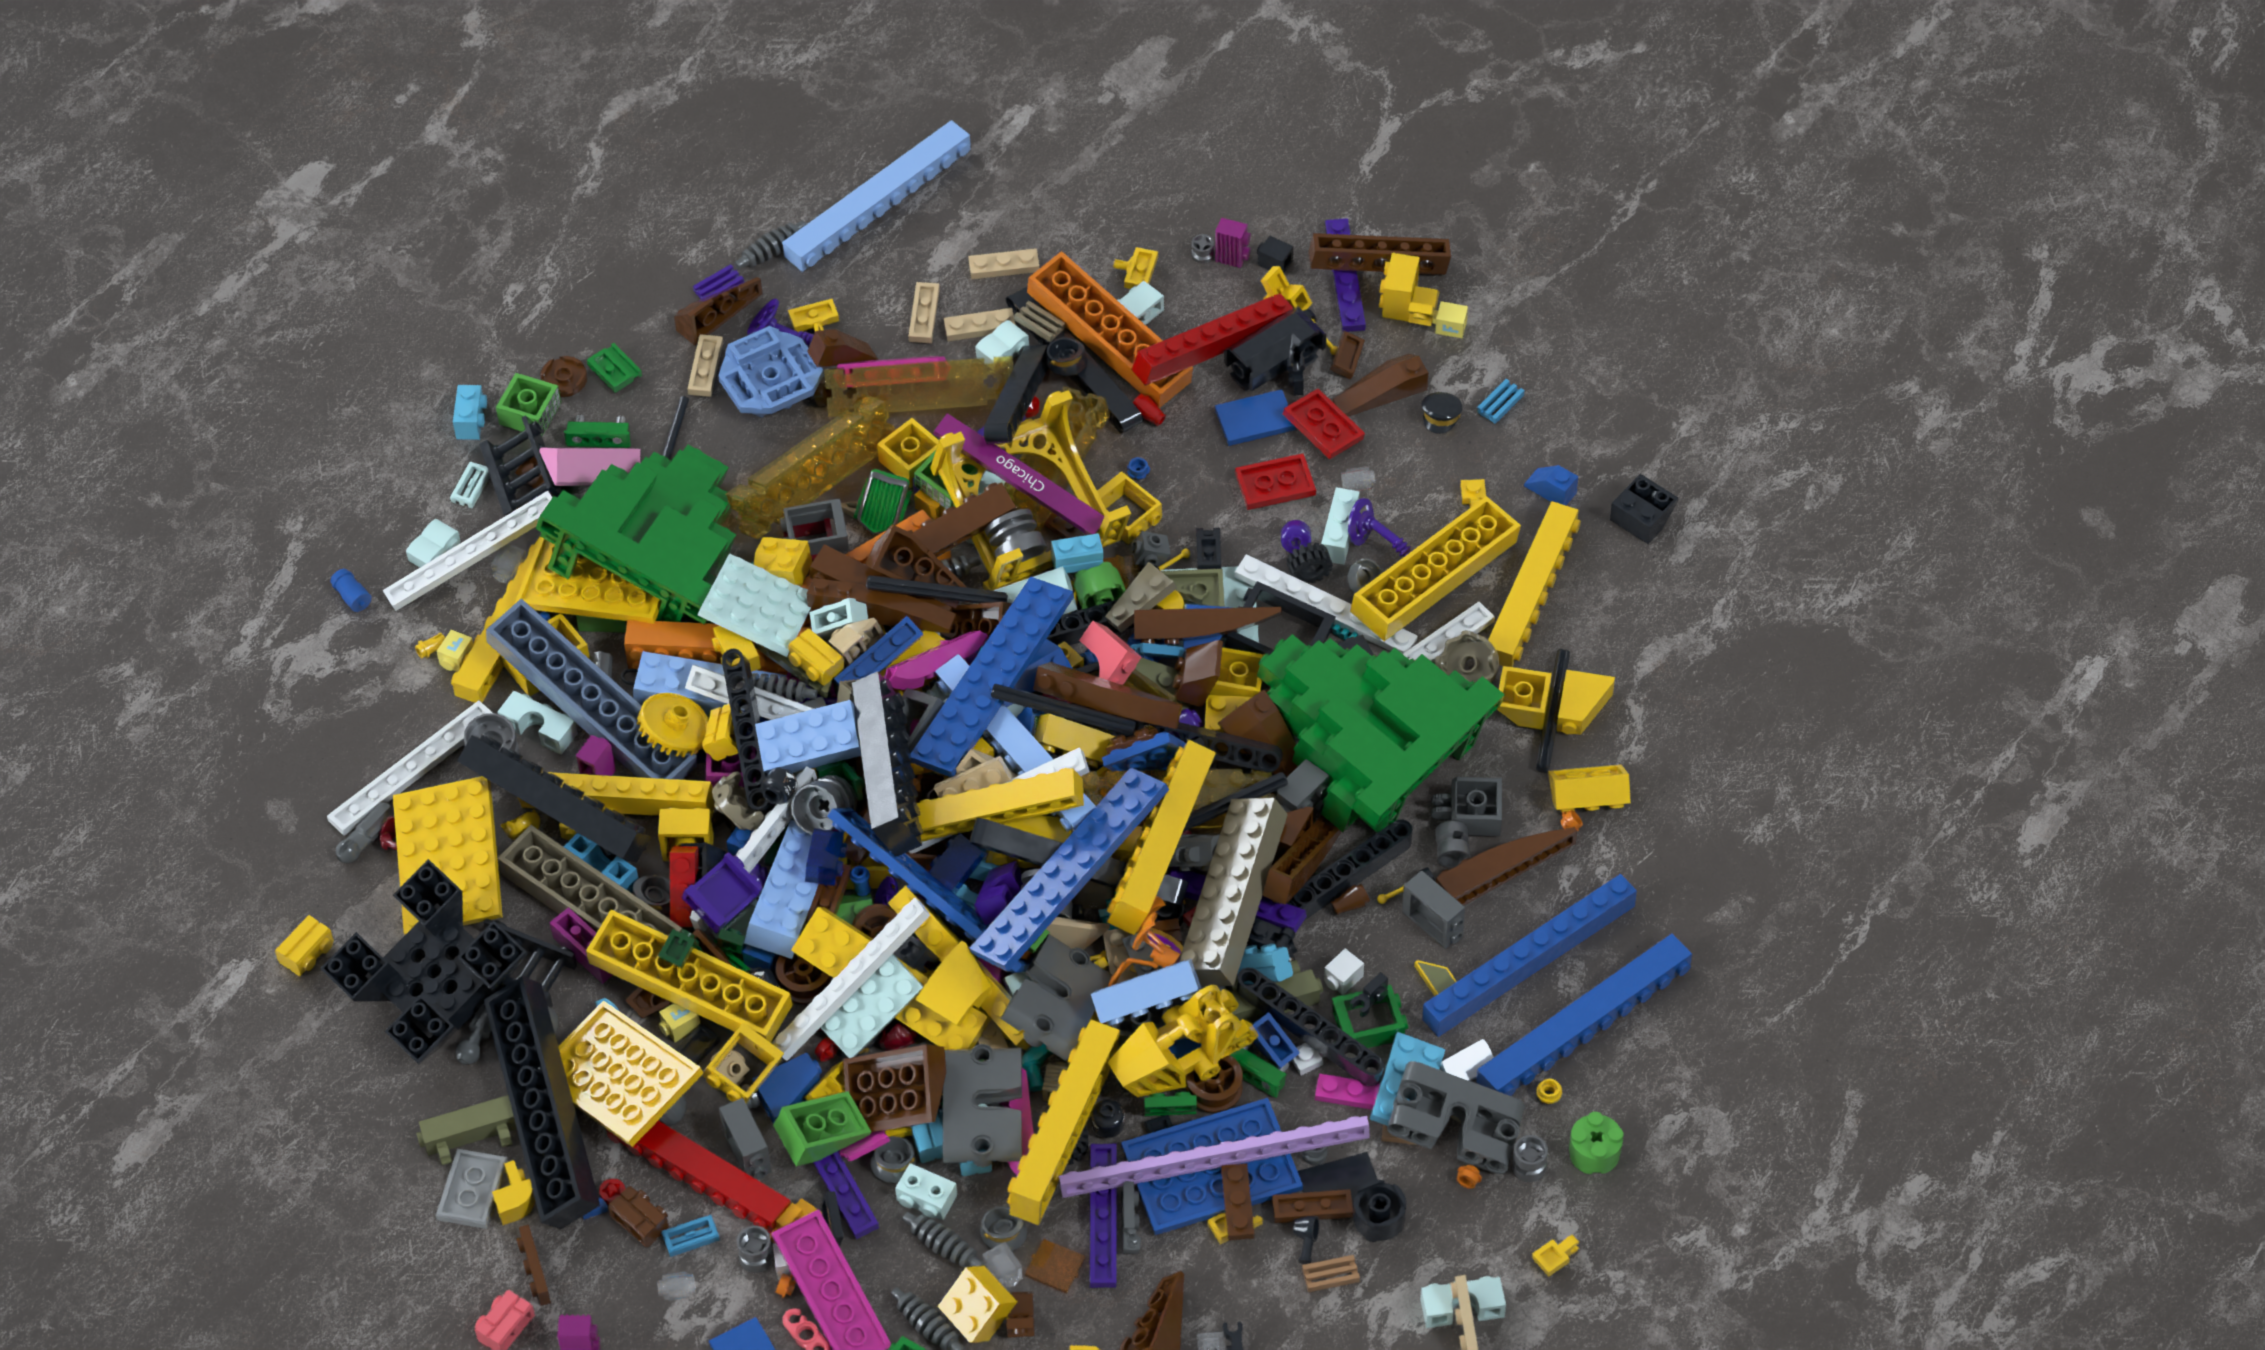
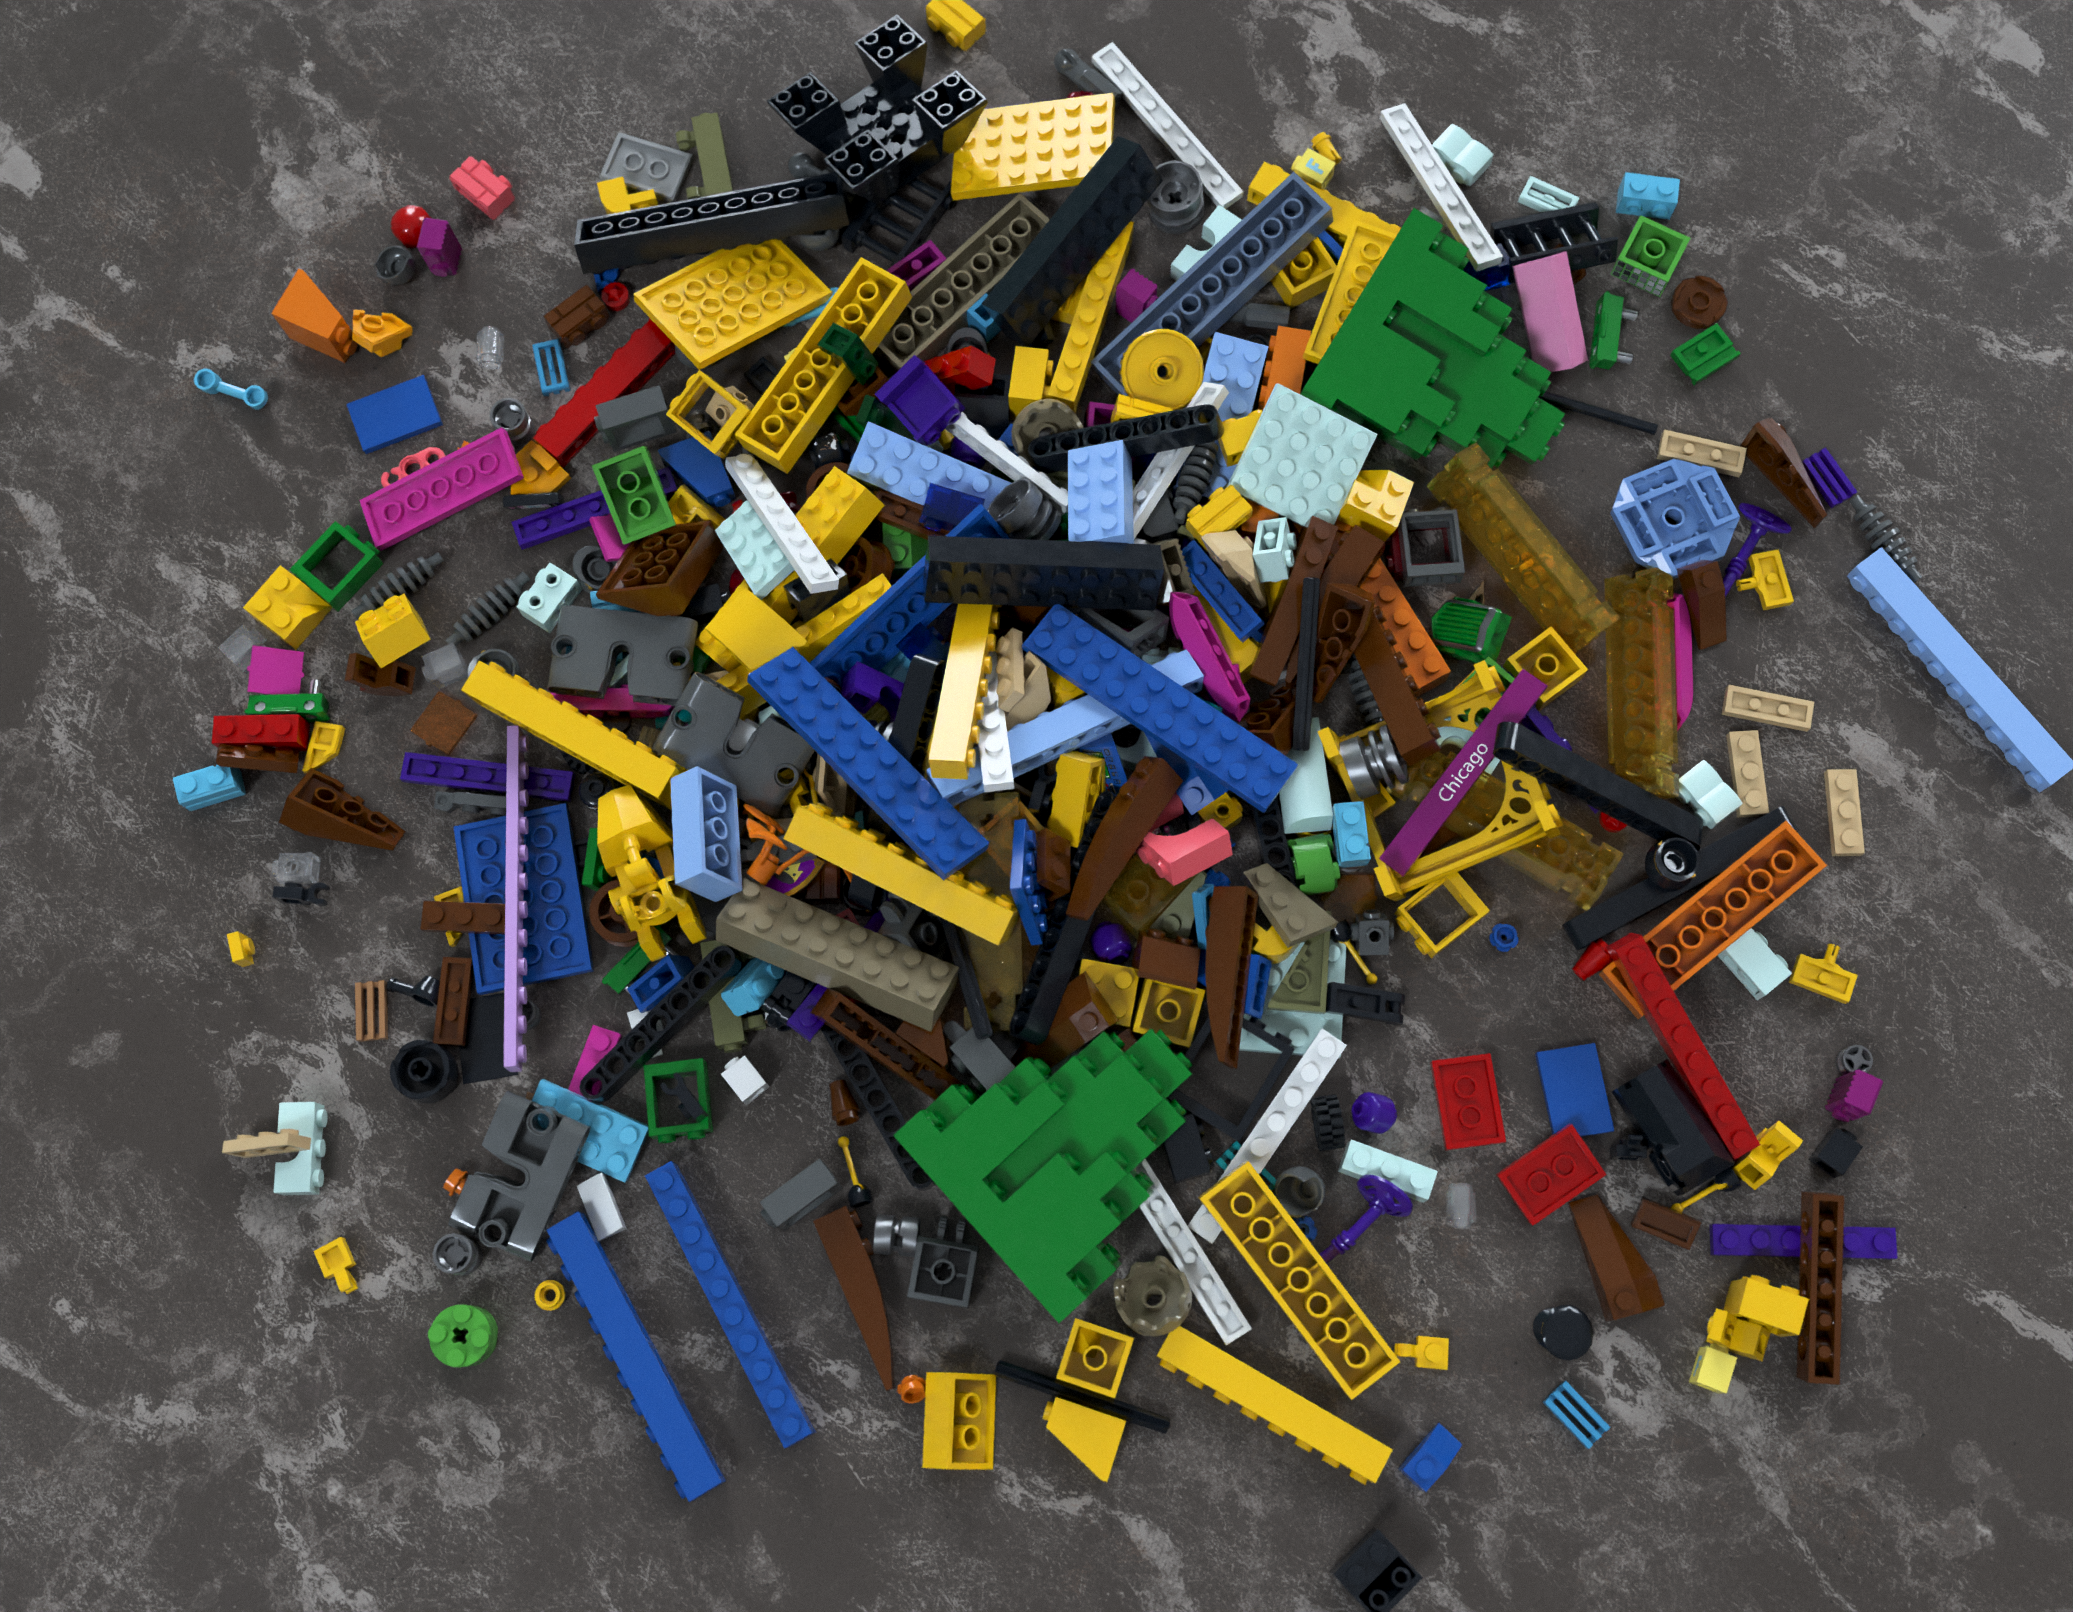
camera: 100 degrees right, 20 degrees up
(351, 590) = (1408, 72): blue piece -> none
(533, 1266) = (540, 217): reddish brown plate -> none
(779, 785) = (1043, 464): black head -> none
(1042, 319) = (1749, 821): dark tan tile -> none
(1063, 709) = (1098, 781): black axle -> none
(1435, 976) = (722, 1190): olive tile -> none

